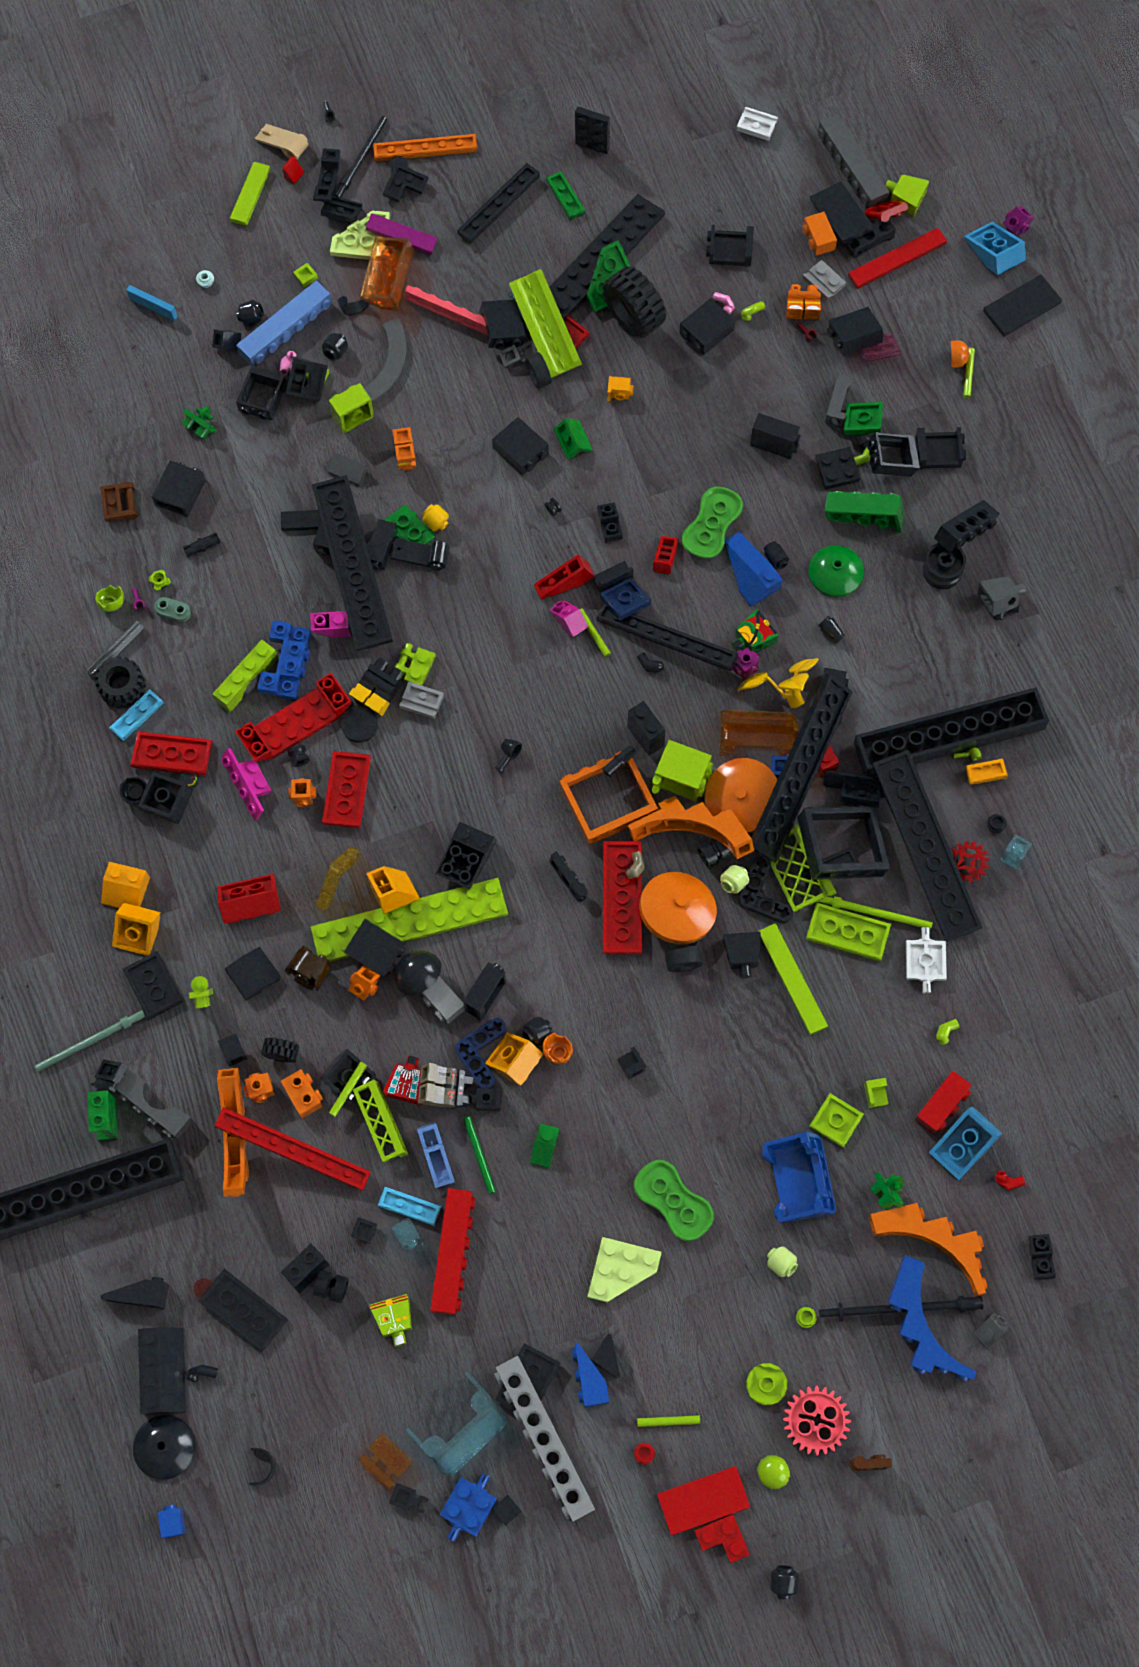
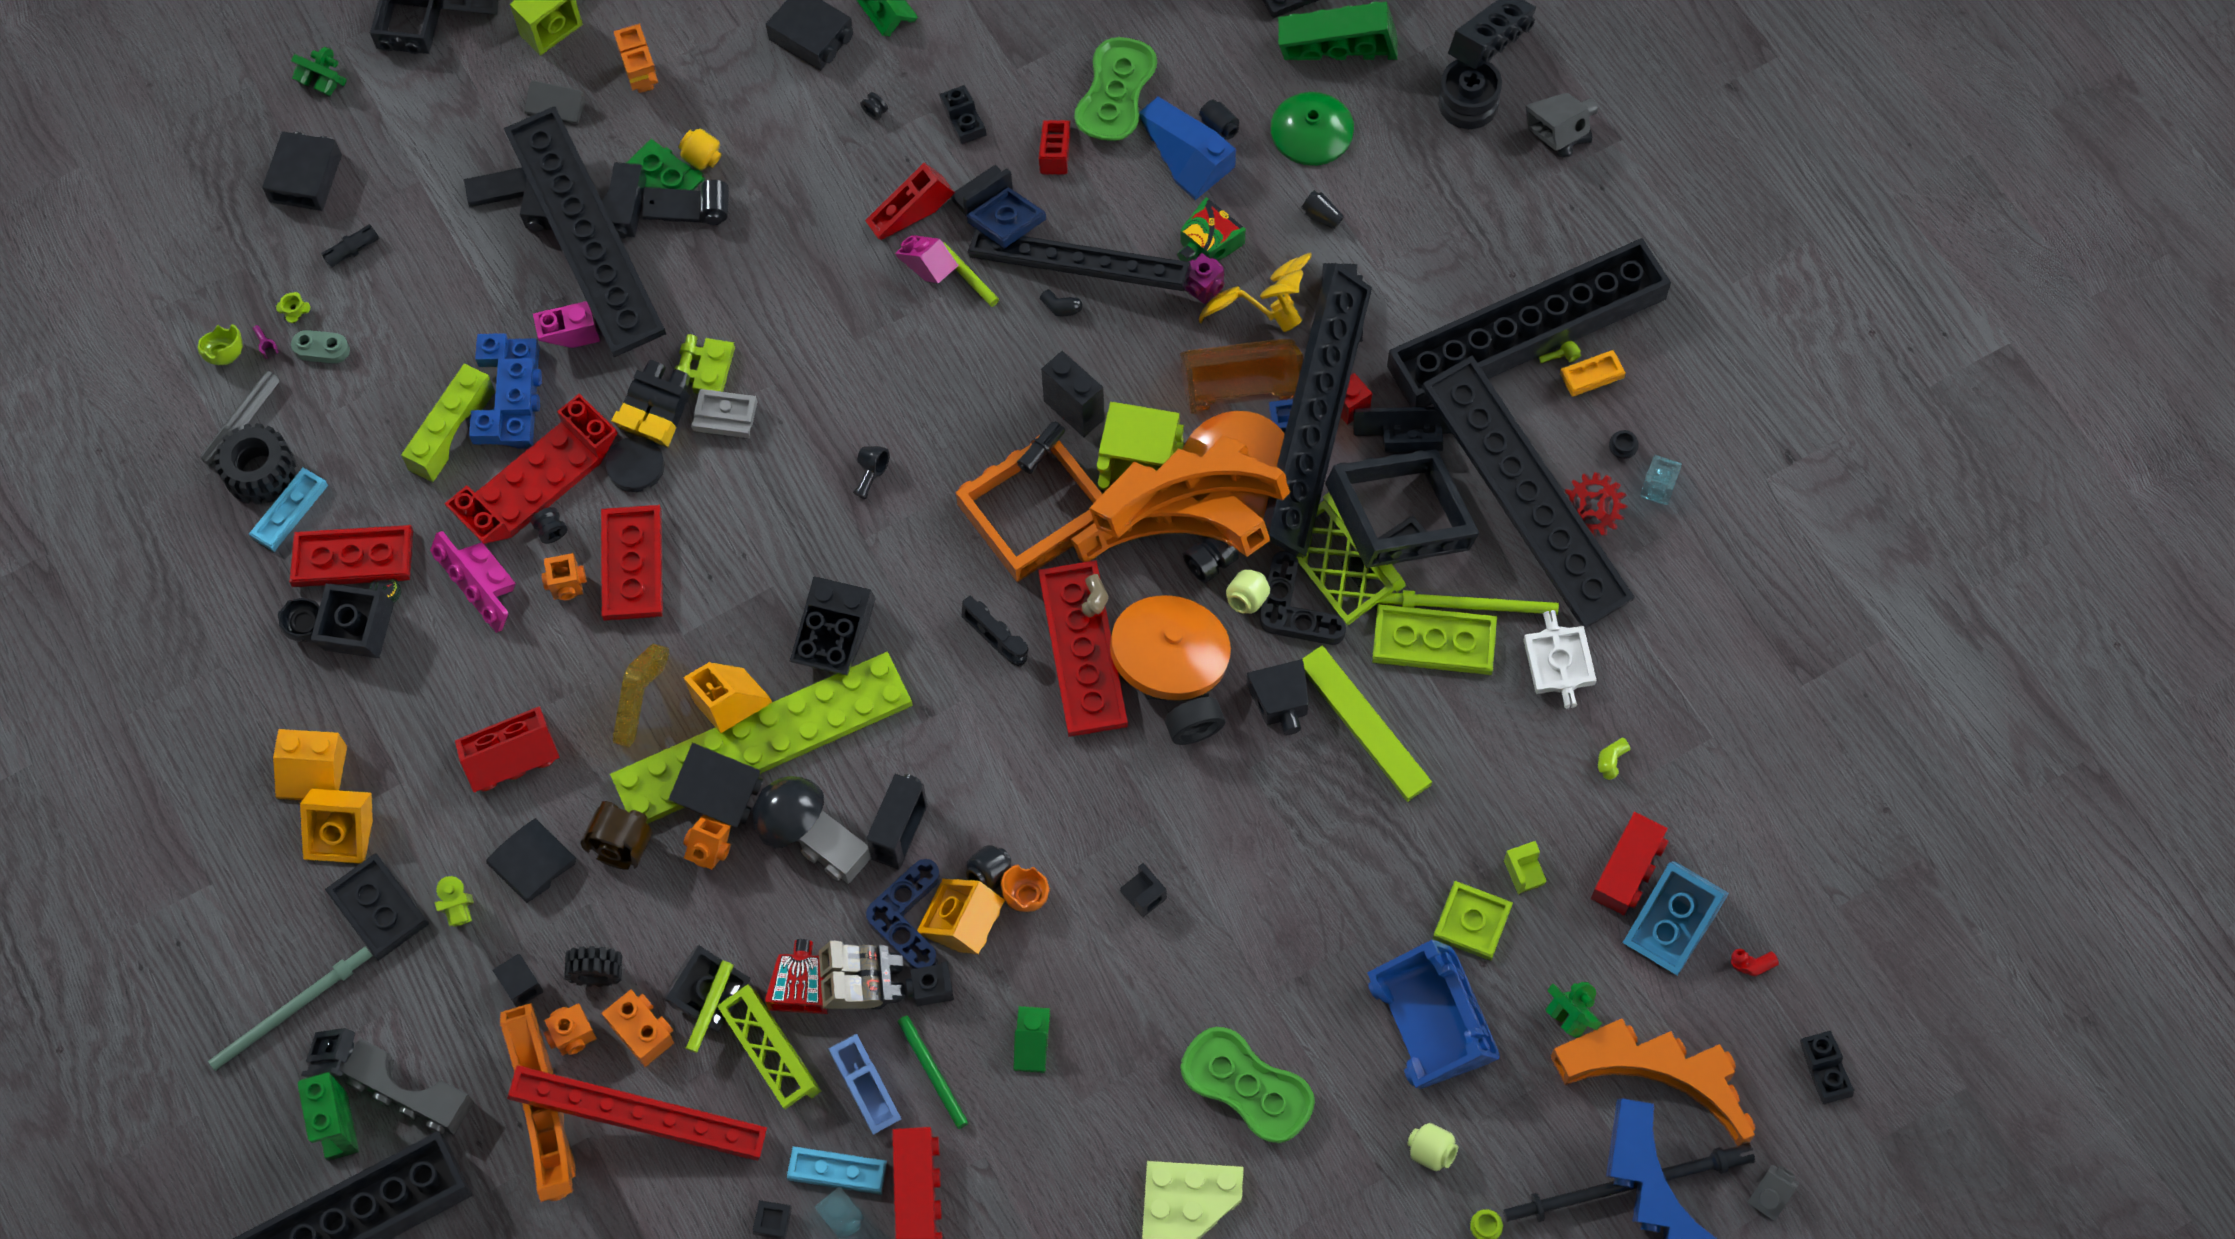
camera: 10 degrees left, 5 degrees down
(112, 502) = (204, 208): reddish brown plate -> none
(707, 797) = (1184, 475): none -> orange arch

